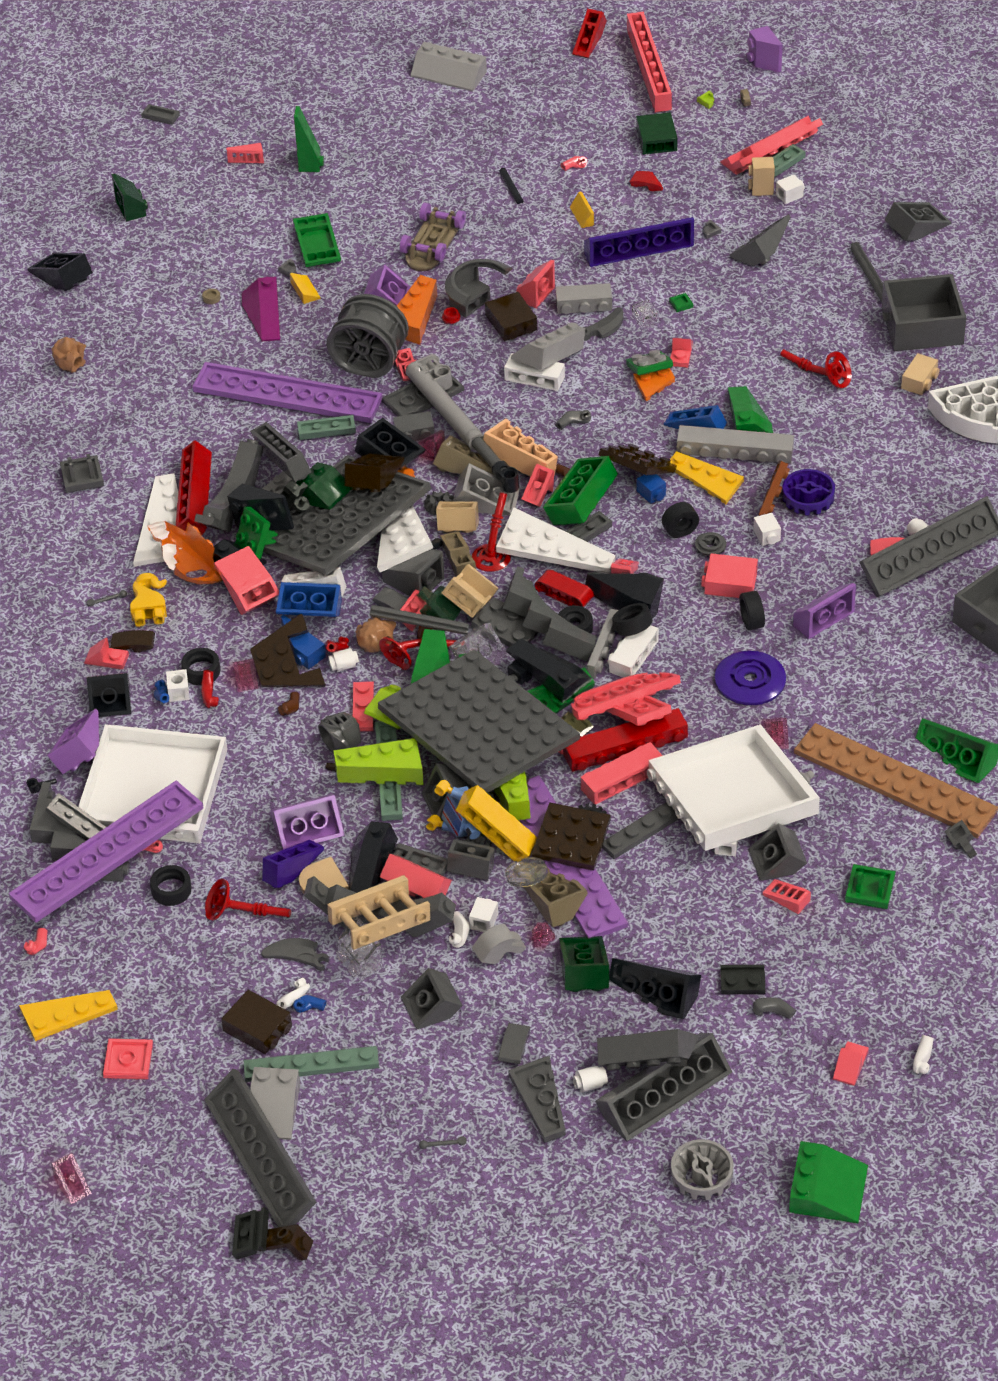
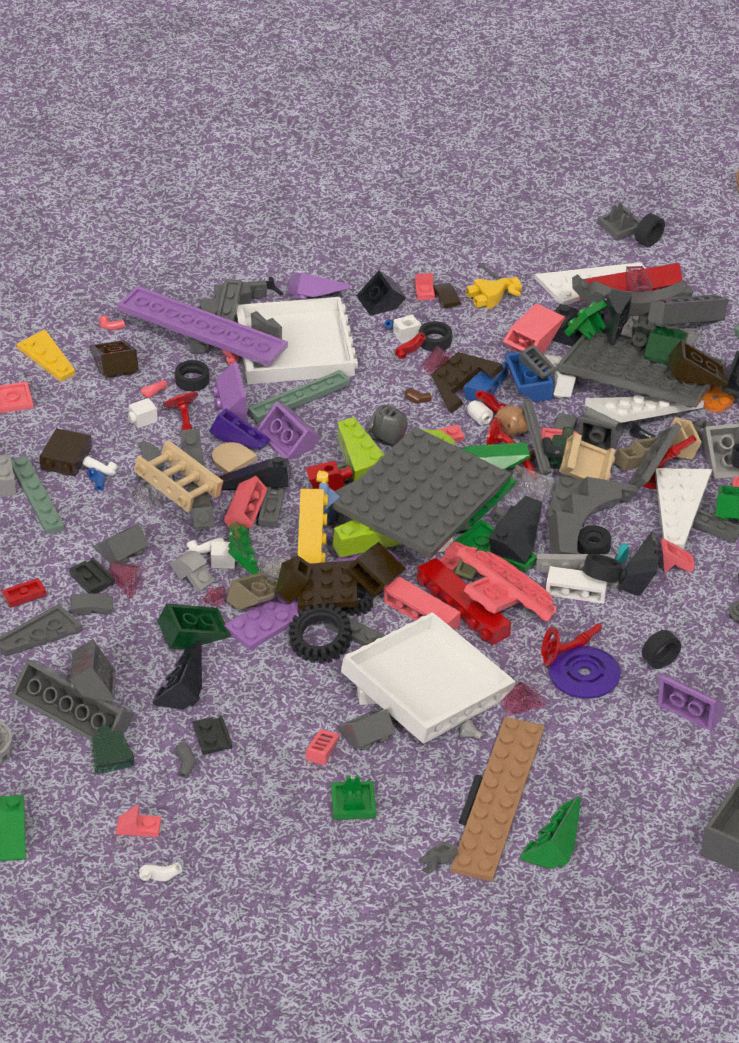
camera: 70 degrees right, 5 degrees down
(104, 947) = (115, 358): none -> dark brown slope
(115, 451) = (649, 230): none -> black tyre
(134, 797) = (268, 326): none -> dark grey slope
(177, 922) = (153, 389): none -> coral arm
(194, 555) = (553, 286): orange animal -> none
(209, 479) = (637, 279): none -> clear pink slope
(218, 940) = (142, 413): none -> white brick
(232, 852) = (231, 392): none -> medium lavender slope
(248, 801) = (301, 394): none -> sand green plate
(297, 592) = (533, 351): none -> dark grey slope
(413, 798) = (335, 476): none -> red torso
(447, 612) = (551, 450): none -> black arm
(470, 1035) = (92, 576): none -> pearl dark grey plate
(471, 857) = (282, 532): dark grey brick -> none
(474, 1100) = (24, 592): none -> red plate
(479, 890) = (241, 547): none -> green wing
(489, 540) = (654, 455): none -> dark grey tile
(489, 1004) = (126, 577): none -> clear pink slope
(561, 855) = (292, 578): none -> dark brown slope
(564, 589) = (631, 525): red beam -> none
(569, 789) = (376, 569): none -> dark brown brick
(590, 1078) = (63, 655): white brick -> none
(602, 607) = (623, 554): none -> teal tile
(644, 838) = (329, 614): none -> black tyre
(720, 683) = (554, 647): none -> red dish
(729, 575) = (705, 631): coral brick -> none
(748, 1063) = (110, 751): none -> clear green torso
(892, 801) = (470, 799): none -> black bar

